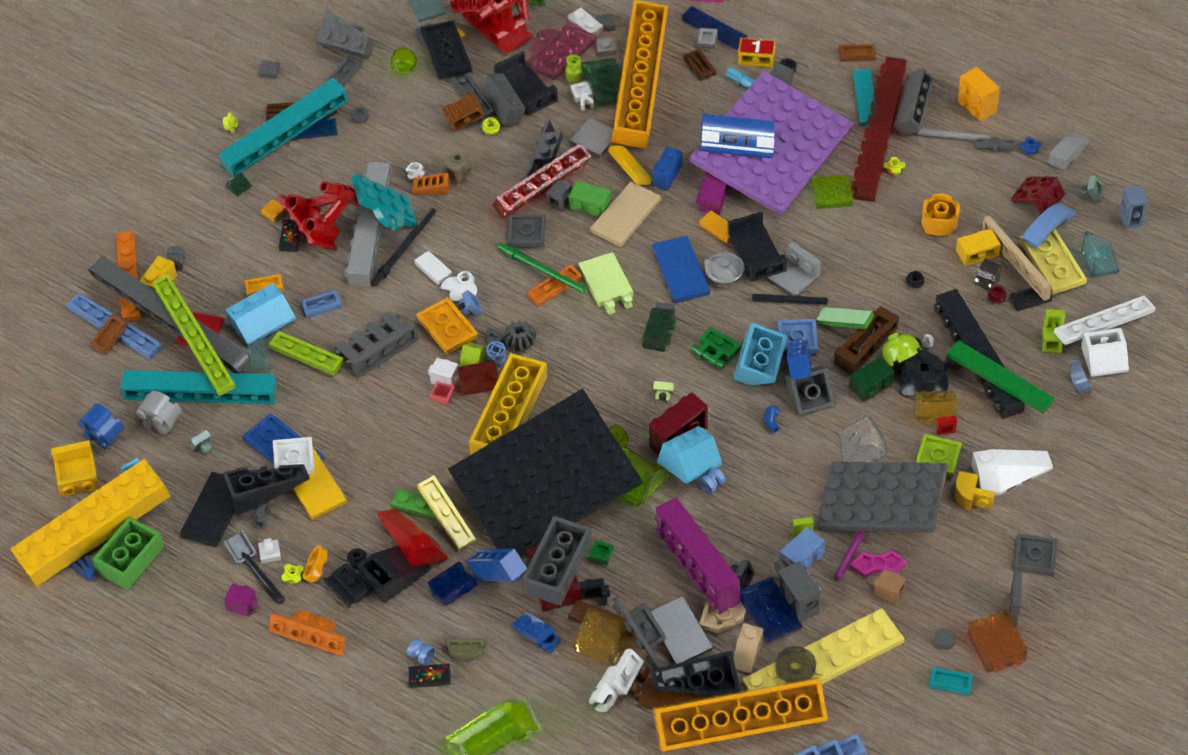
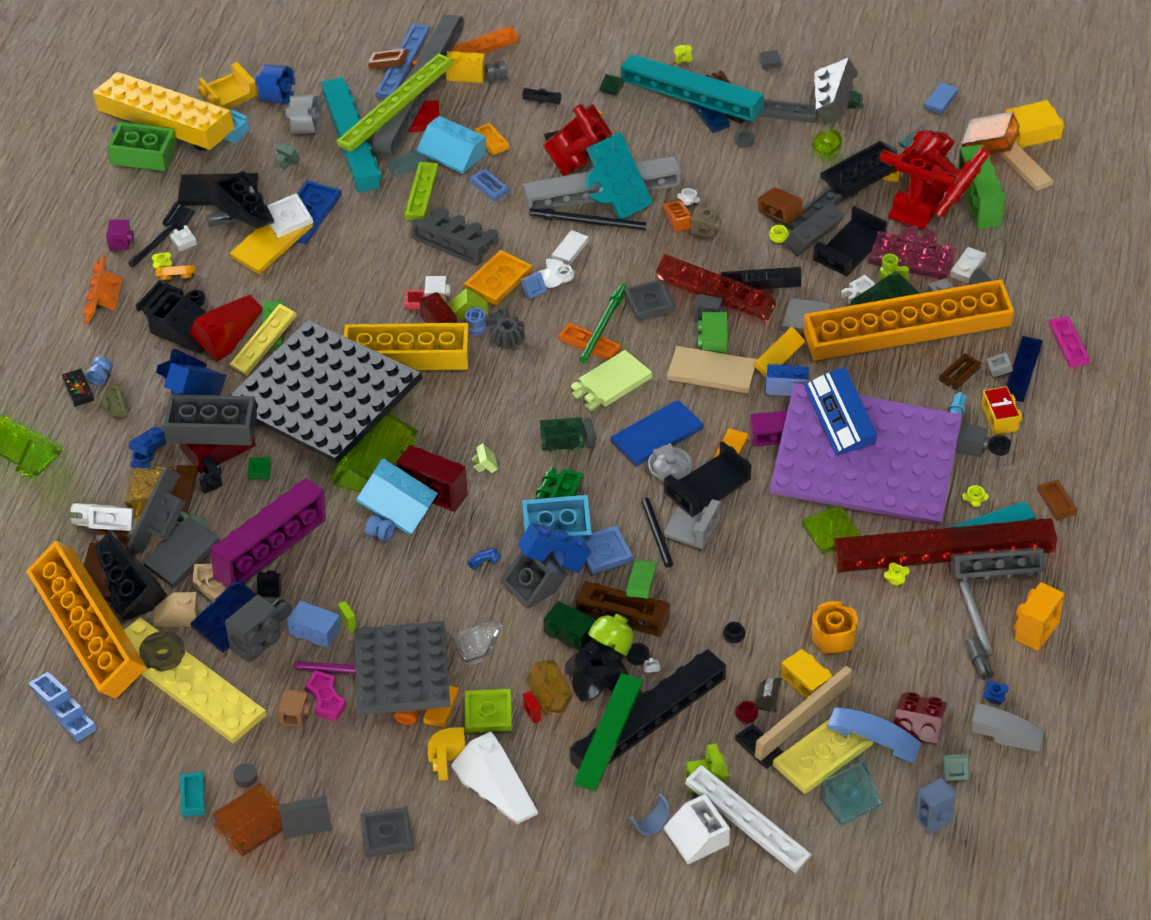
camera: 70 degrees right, 5 degrees down
(226, 235) = (541, 96): none -> black pin
(835, 96) = (975, 495): none -> neon yellow plate

